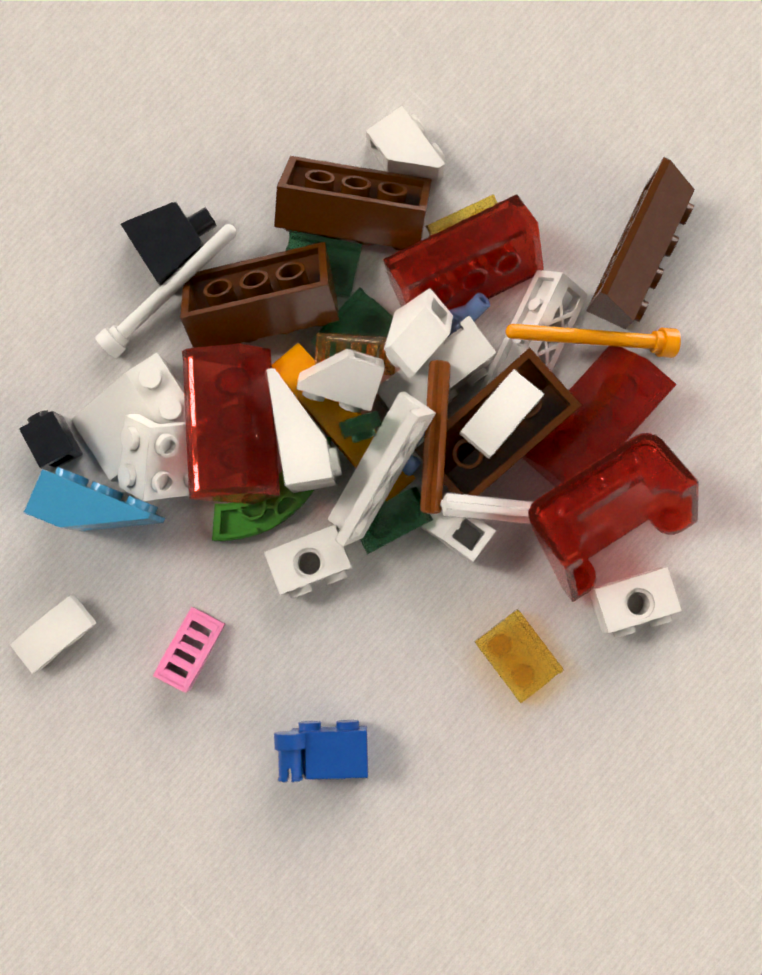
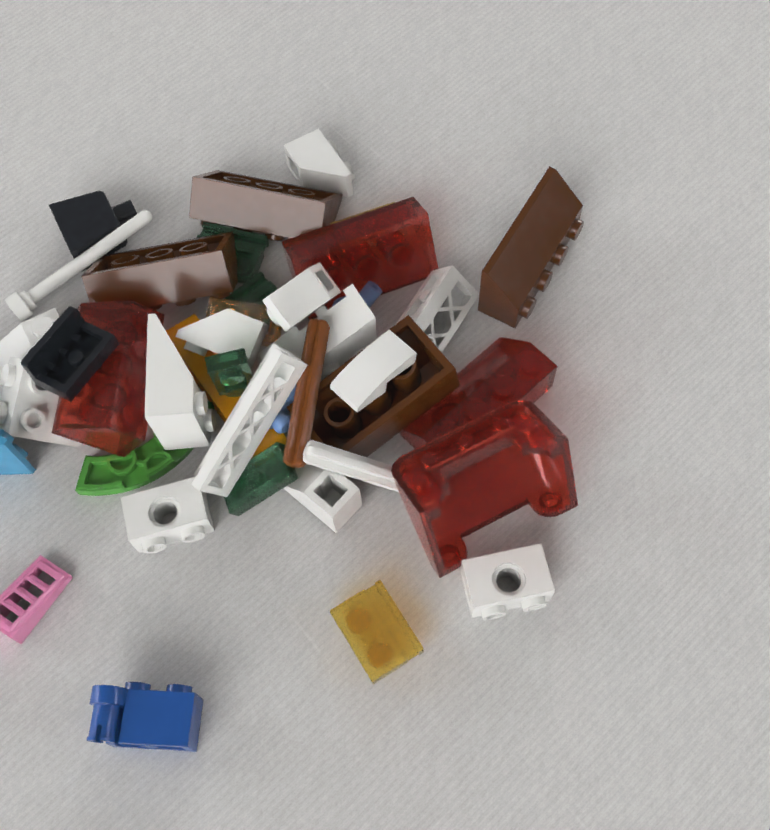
camera: 10 degrees right, 20 degrees down
(195, 420) = (68, 354): none -> black bracket
(662, 342) = (549, 336): light orange piece -> none

